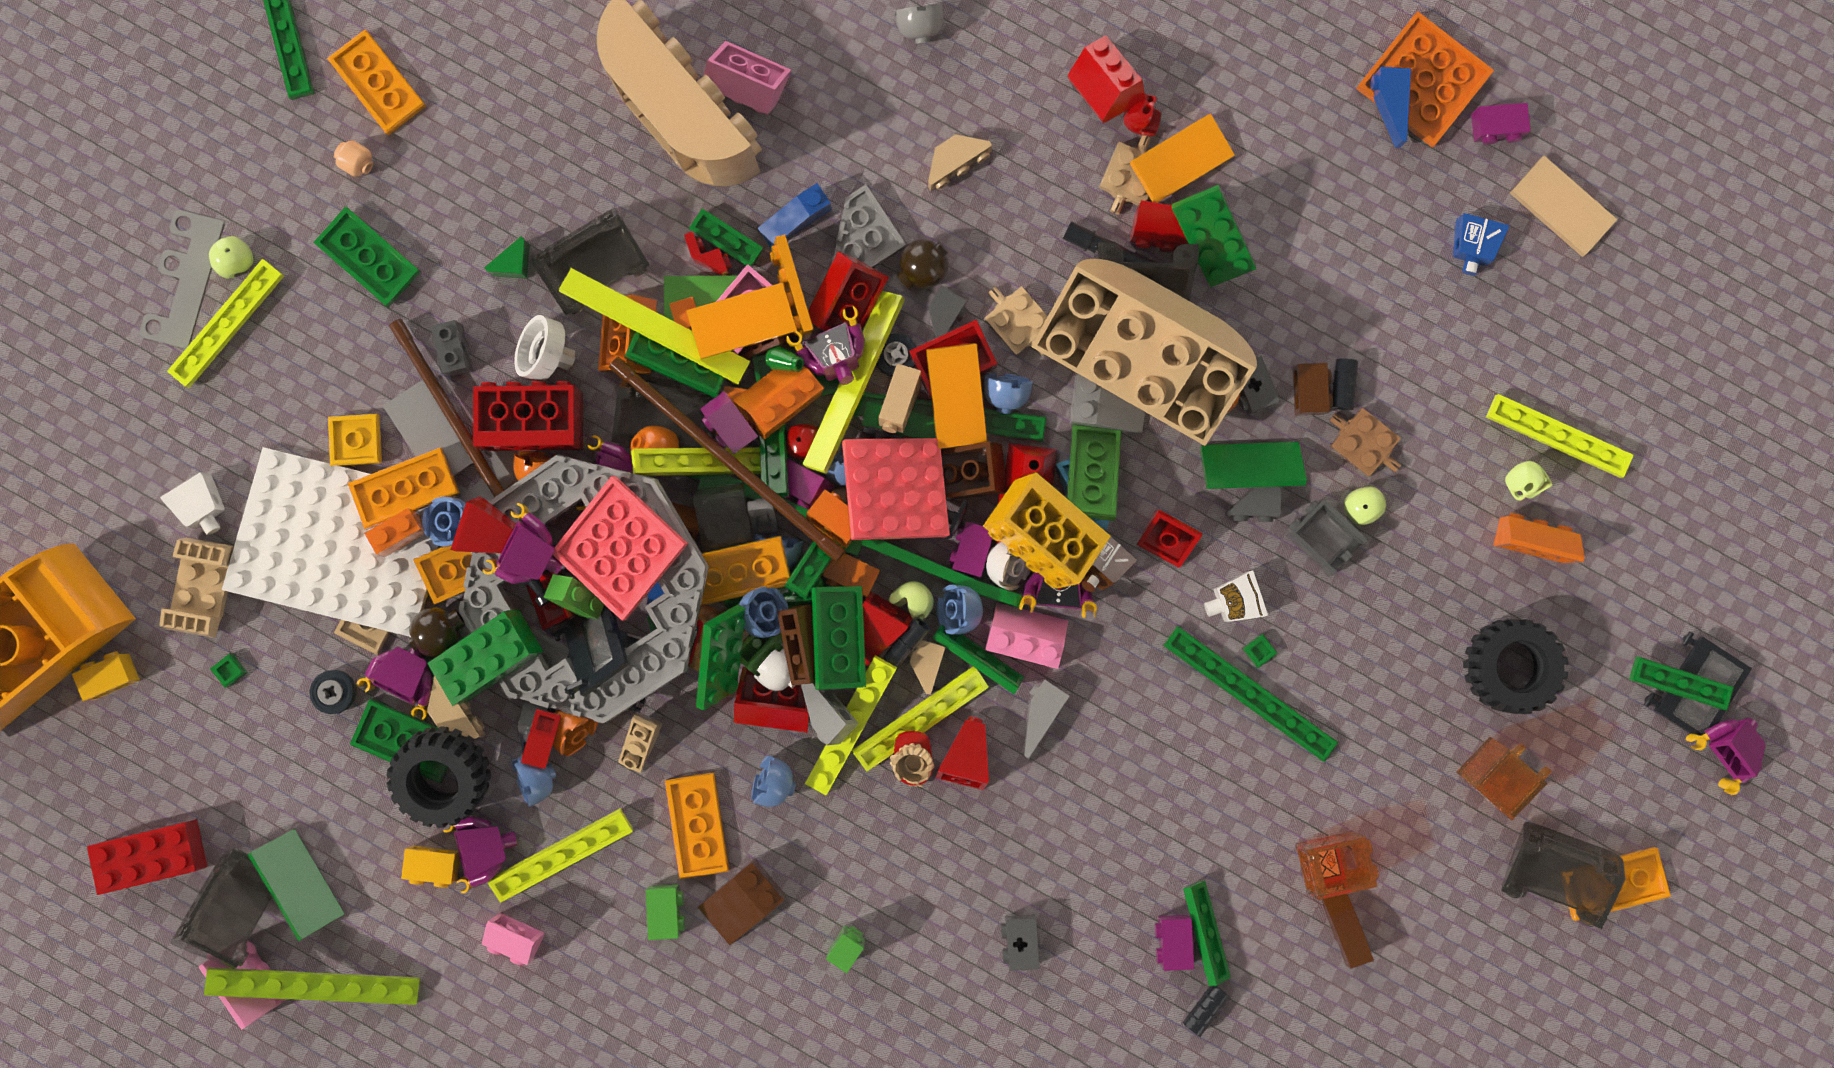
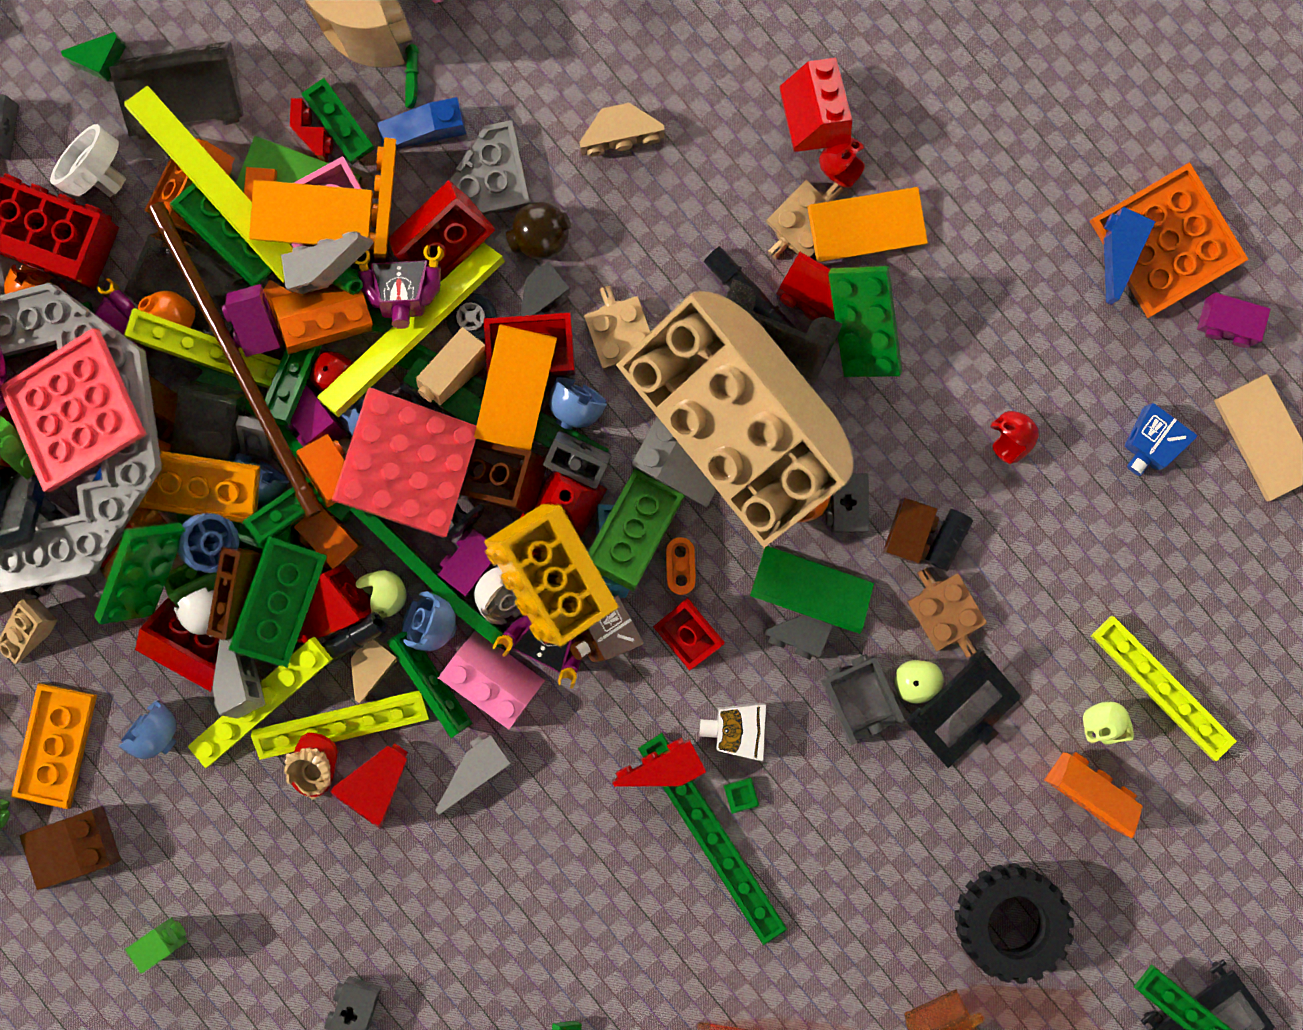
camera: 20 degrees right, 0 degrees up
(765, 358) = (318, 266): none -> light grey slope
(771, 182) = (411, 86): none -> green piece
(1027, 434) = (577, 459): none -> dark grey brick
(1141, 487) = (680, 565): none -> orange plate
(1197, 649) = (669, 768): none -> red slope
(1366, 282) = (1017, 436): none -> red helmet
(1411, 513) = (965, 710): none -> black piece

